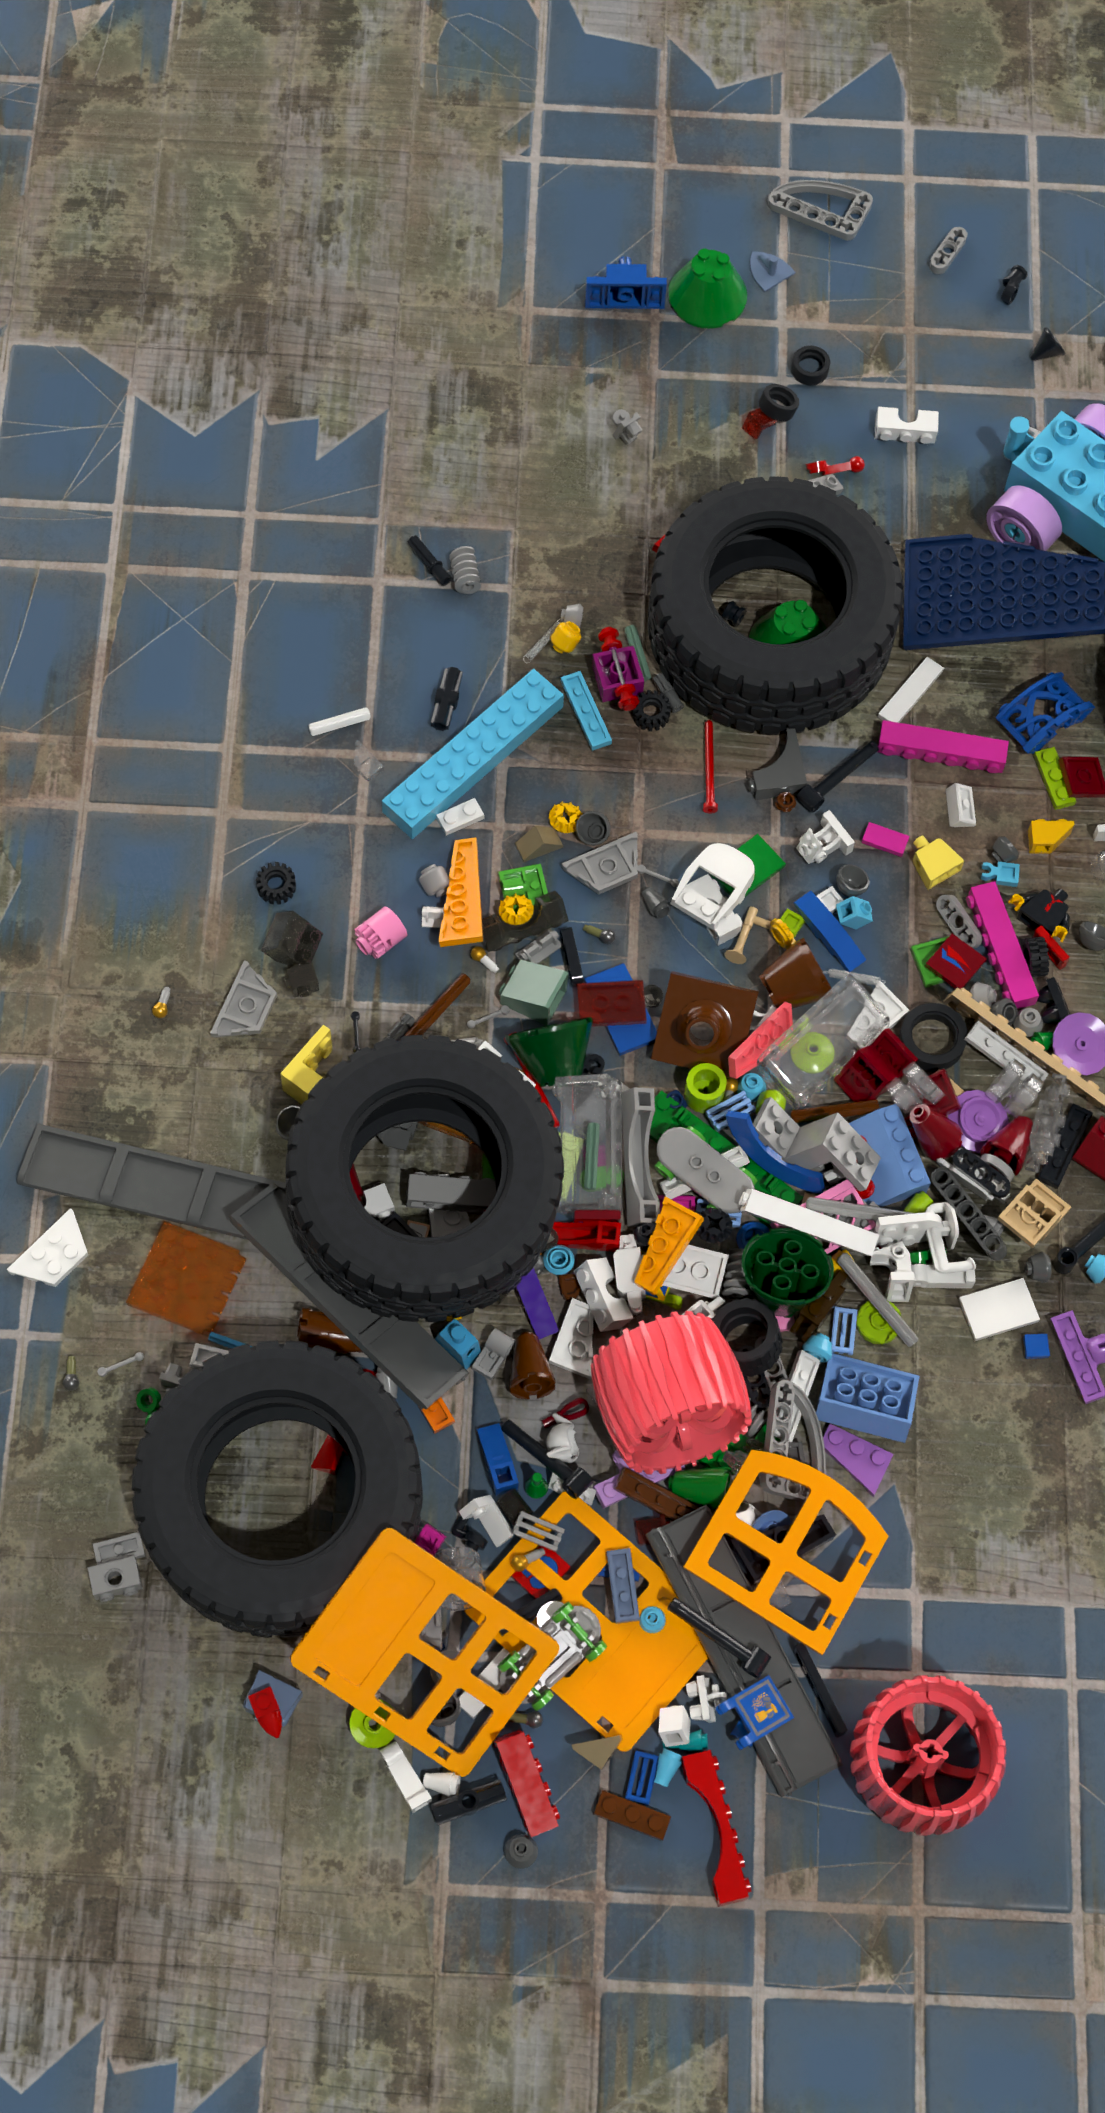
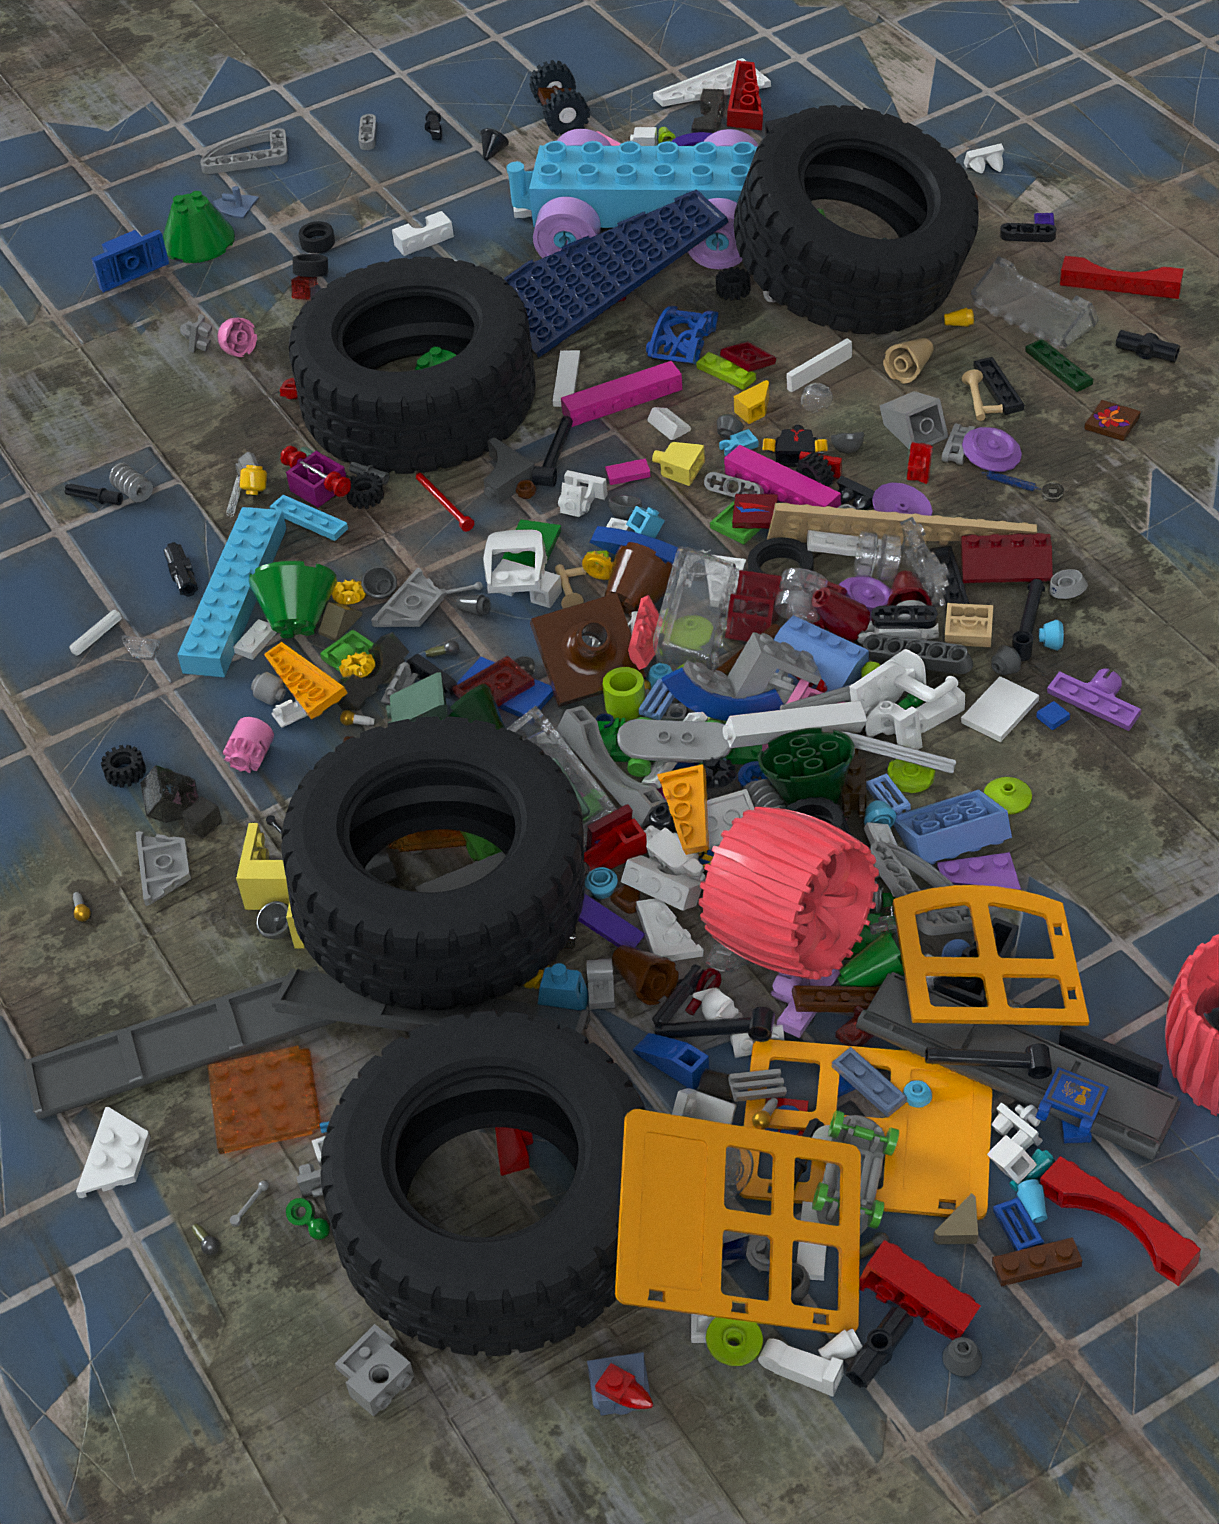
camera: 25 degrees left, 20 degrees down
(506, 807) = (292, 595): none -> green cone
(536, 1486) = (723, 1057): green cone -> none
(543, 1405) = (684, 988): none -> black axle
(658, 452) = (237, 336): none -> bright pink cylinder
(937, 1407) = (1010, 794): none -> lime dish

